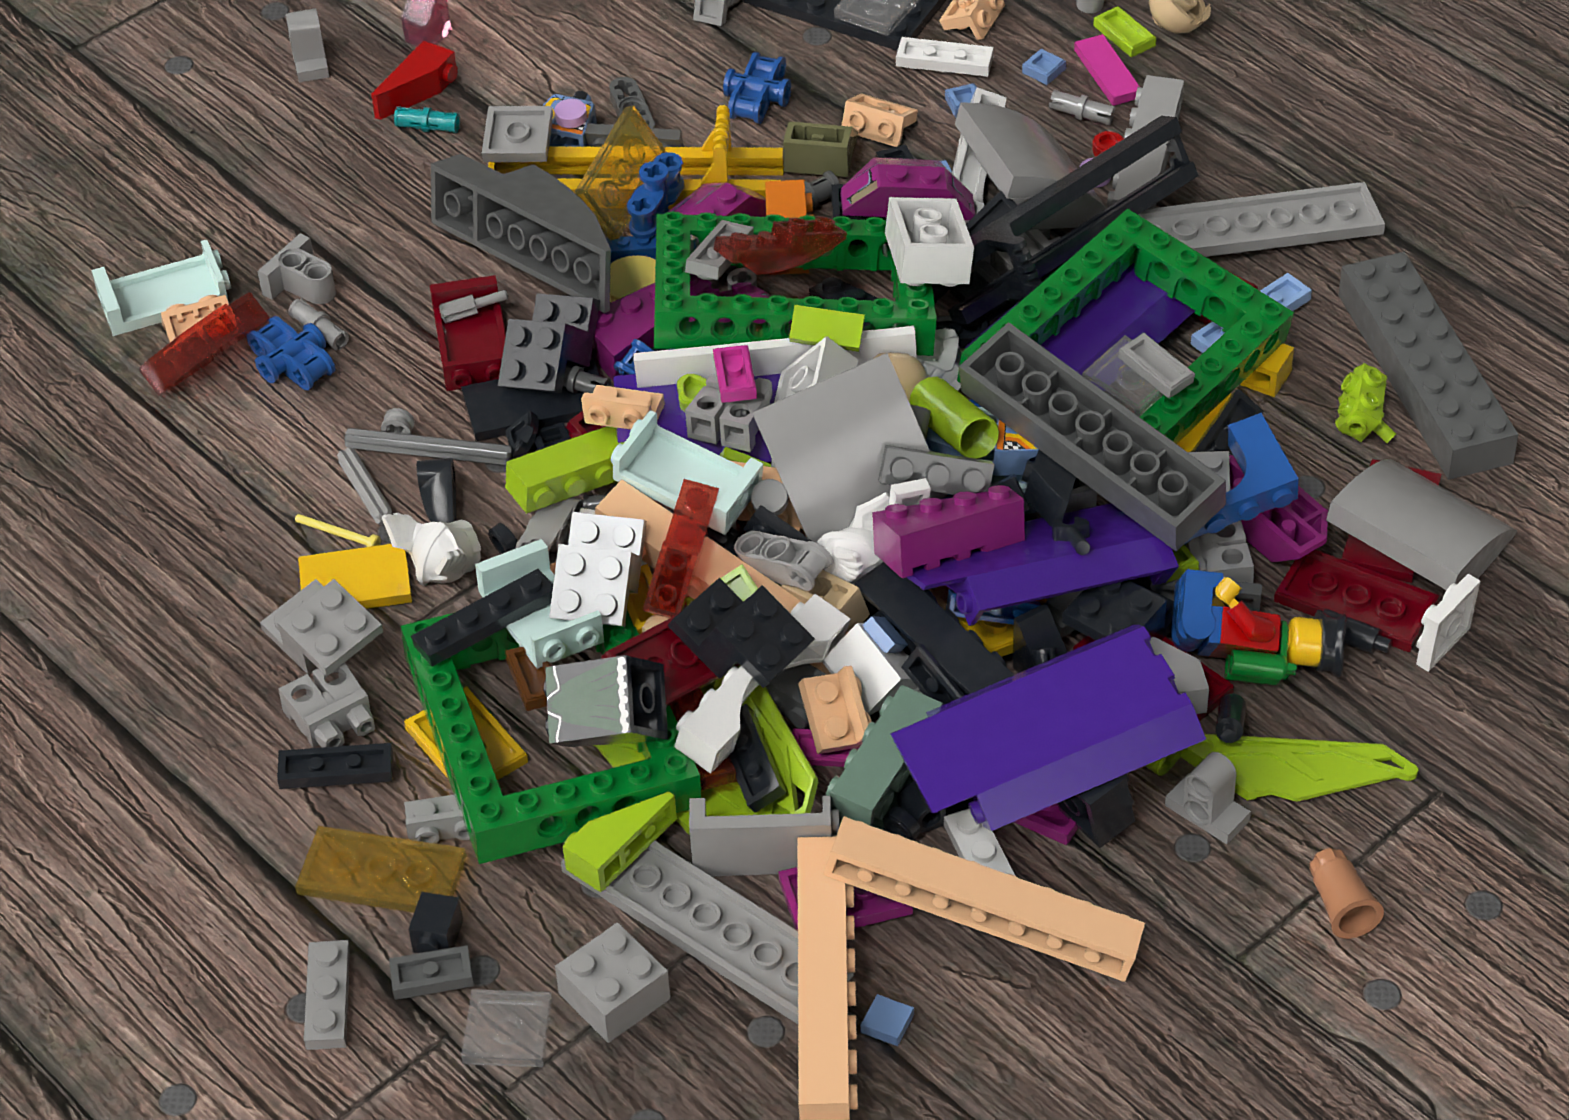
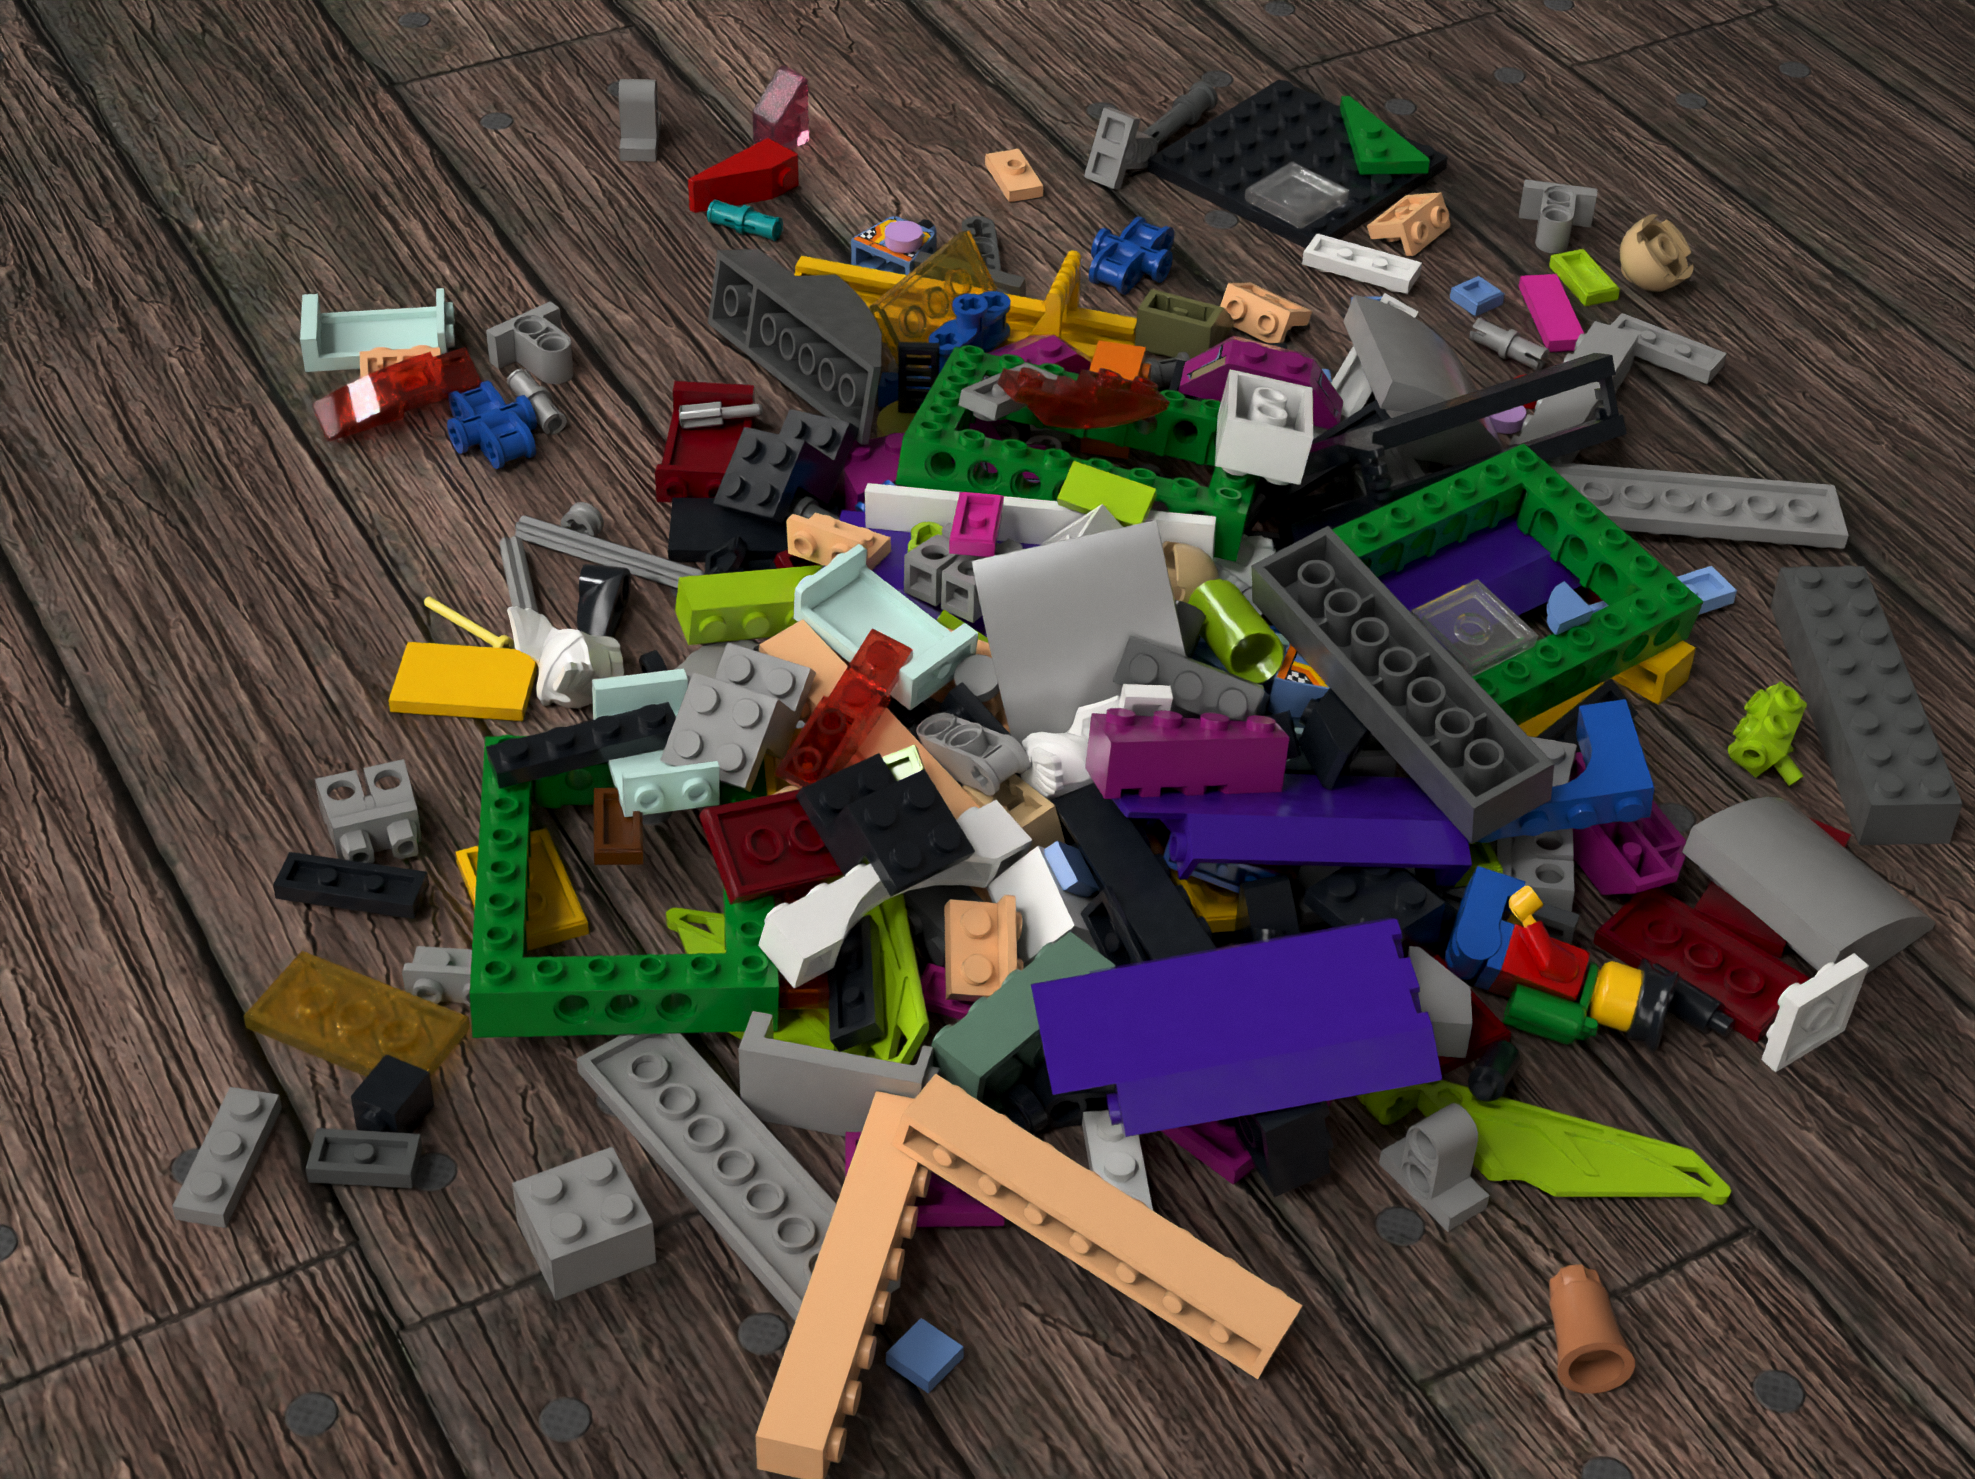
camera: 10 degrees right, 5 degrees down
(321, 627) = (396, 721): light grey bracket -> none
(507, 1028) = (432, 1250): clear tile -> none
(517, 134) = (834, 245): light grey plate -> none
(606, 702) = (685, 868): slope -> none
(614, 841) = (653, 1044): lime slope -> none
(629, 250) = (910, 398): none -> black slope
(635, 30) = (1014, 175): none -> light nougat plate
(1073, 533) = (1344, 795): black bar -> none
(1156, 365) = (1507, 620): light grey tile -> none
(1196, 344) = (1566, 609): none -> medium blue tile
(1210, 85) = (1672, 350): none -> light grey plate

